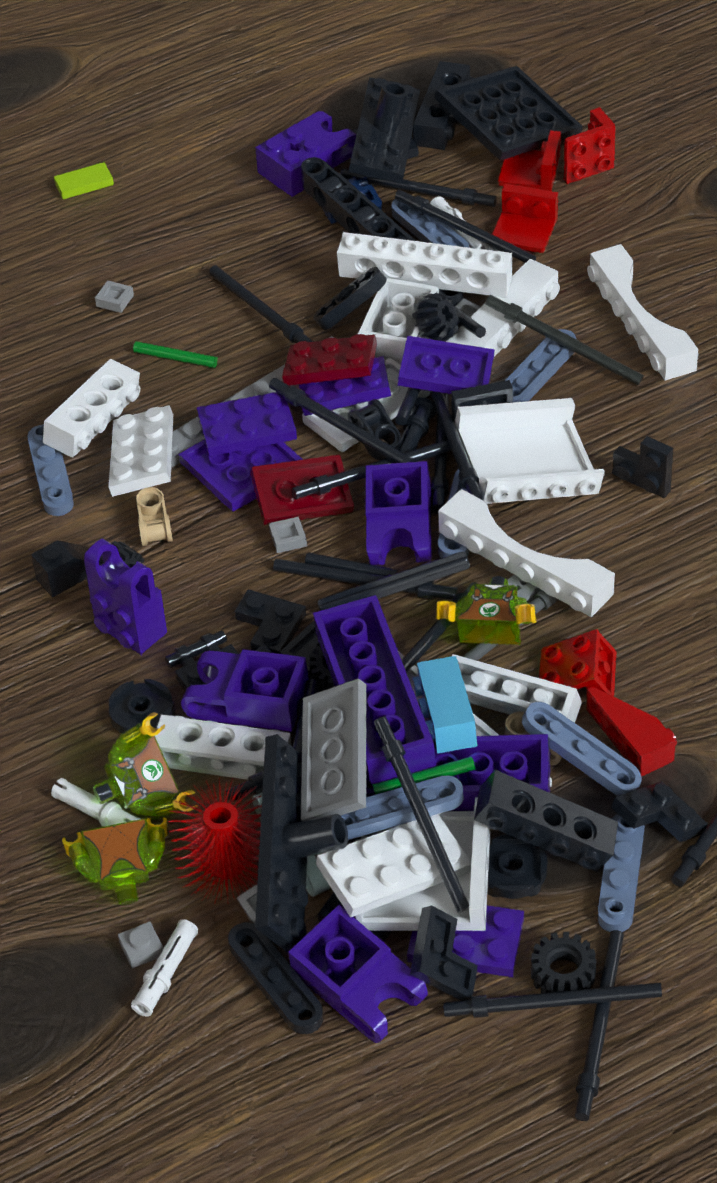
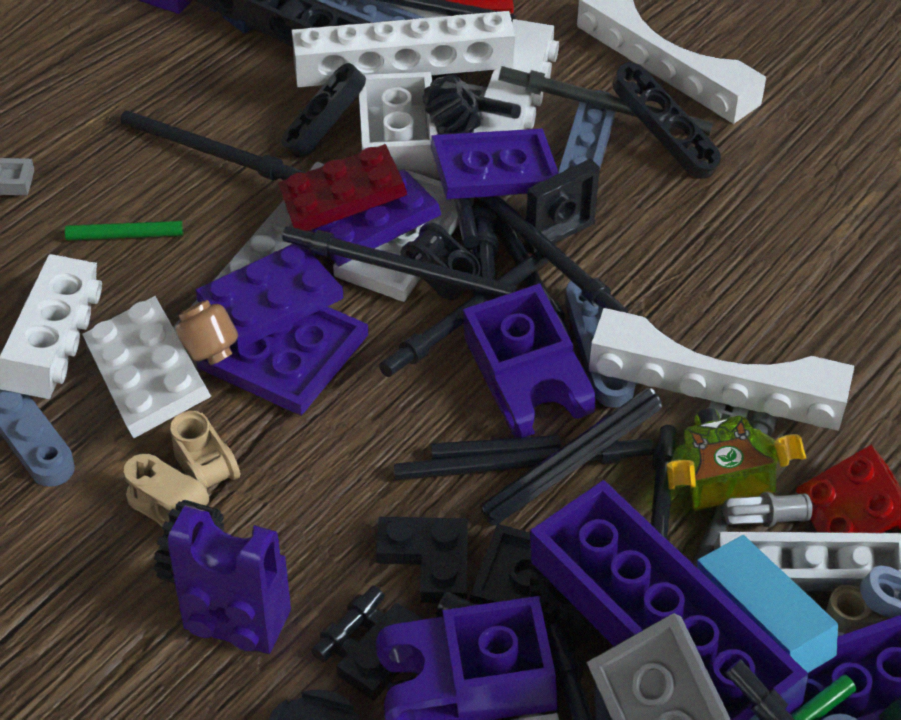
camera: 25 degrees left, 0 degrees up
(59, 566) = (105, 557): black slope -> none
(114, 527) = (159, 487): none -> tan piece
(186, 438) = (206, 332): none -> medium nougat head
(274, 485) = (353, 363): dark red plate -> none
(287, 534) = (393, 427): light grey plate -> none
(507, 654) = (767, 509): none -> light grey axle
(526, 451) = (639, 242): white panel -> none
(604, 364) = (670, 117): none -> black beam
(648, 470) = (791, 234): black plate -> none

